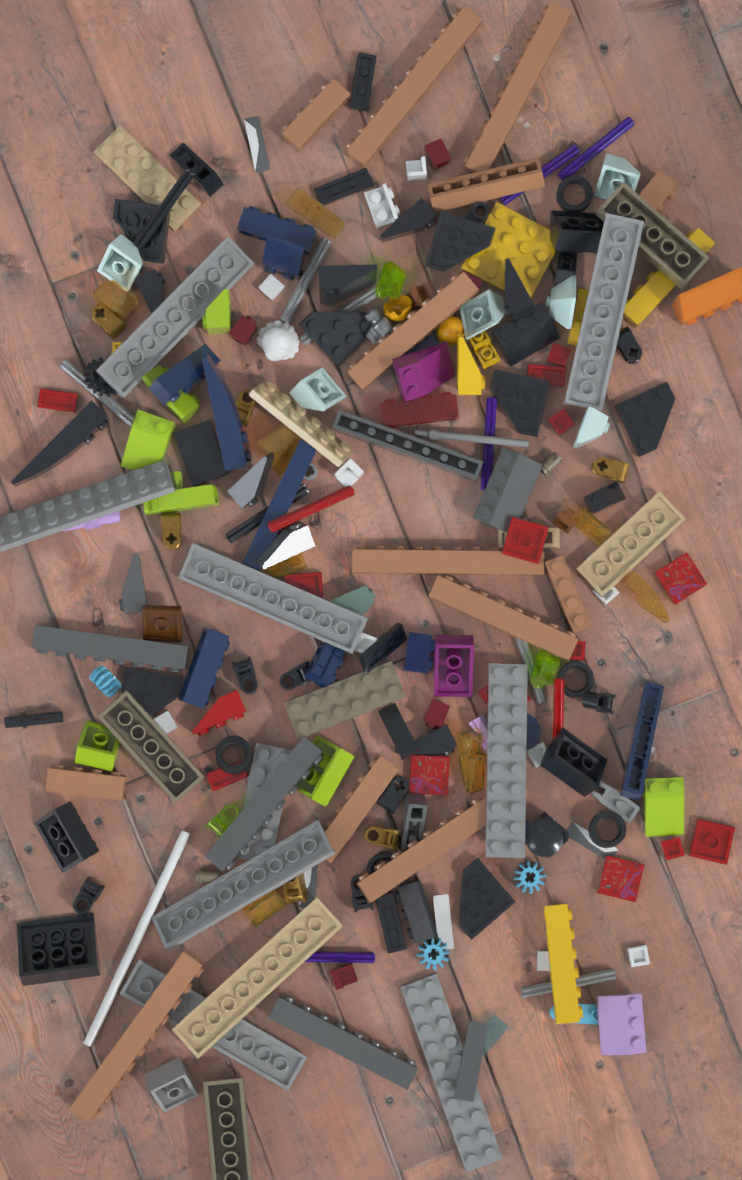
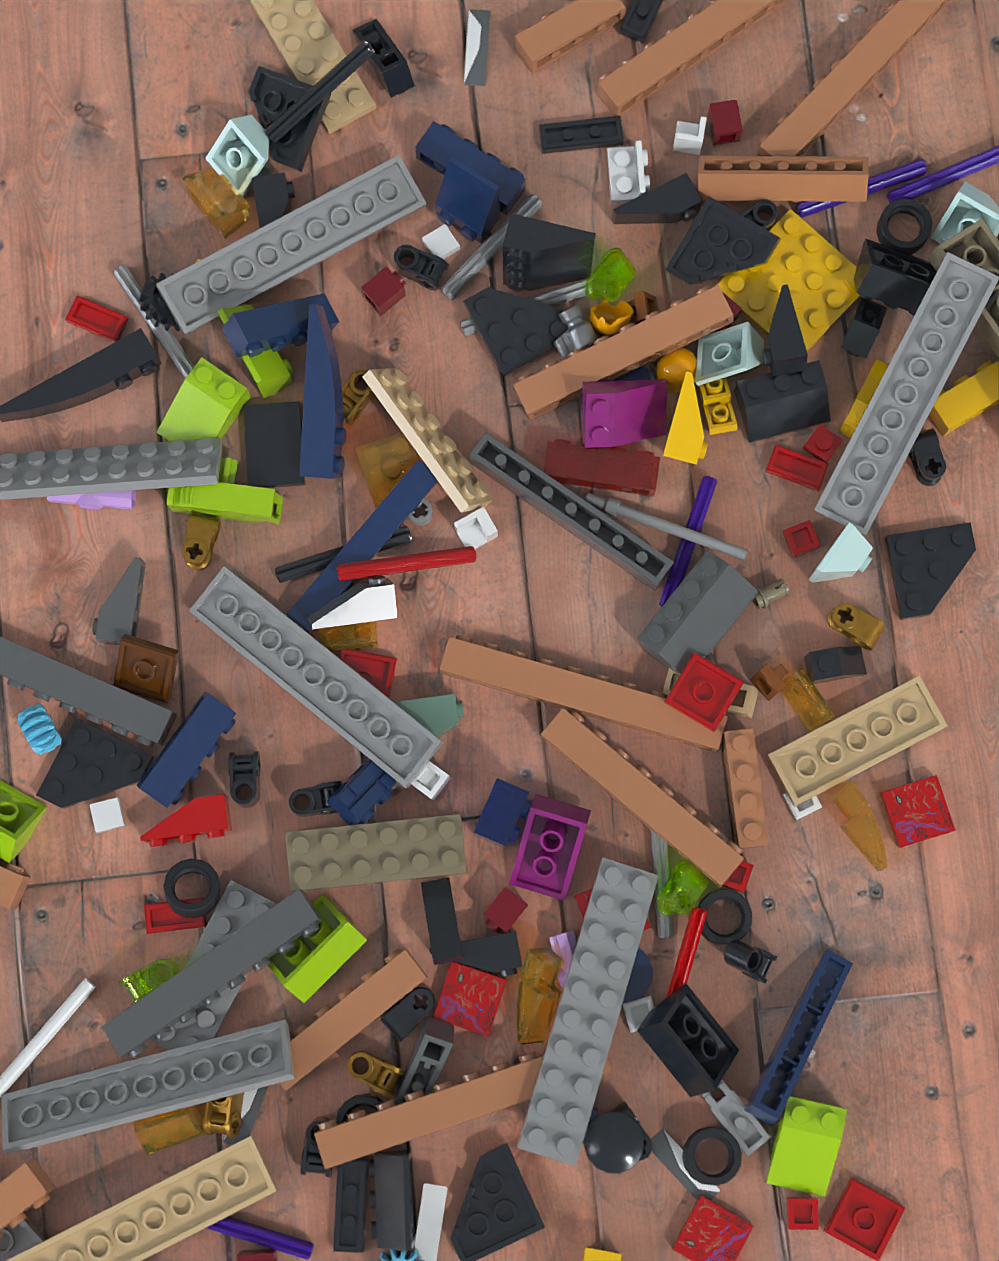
camera: 25 degrees right, 5 degrees down
(110, 323) = (199, 230): pearl gold piece -> none
(151, 746) = (74, 841): dark tan brick -> none
(206, 876) = (99, 1056): dark tan pin -> none
(218, 315) = (354, 256): lime slope -> none
(252, 483) = (333, 503): slope -> none
(264, 307) = (425, 268): none -> black piece
(278, 341) = (429, 318): white hair -> none
(315, 213) = (531, 158): clear yellow slope -> none
(317, 391) = (463, 401): light aqua slope -> none
(382, 647) = (452, 791): black tile -> none
(521, 399) = (752, 491): black plate -> none
(536, 878) = (586, 1198): medium azure gear -> none
(562, 302) = (848, 368): light aqua slope -> none

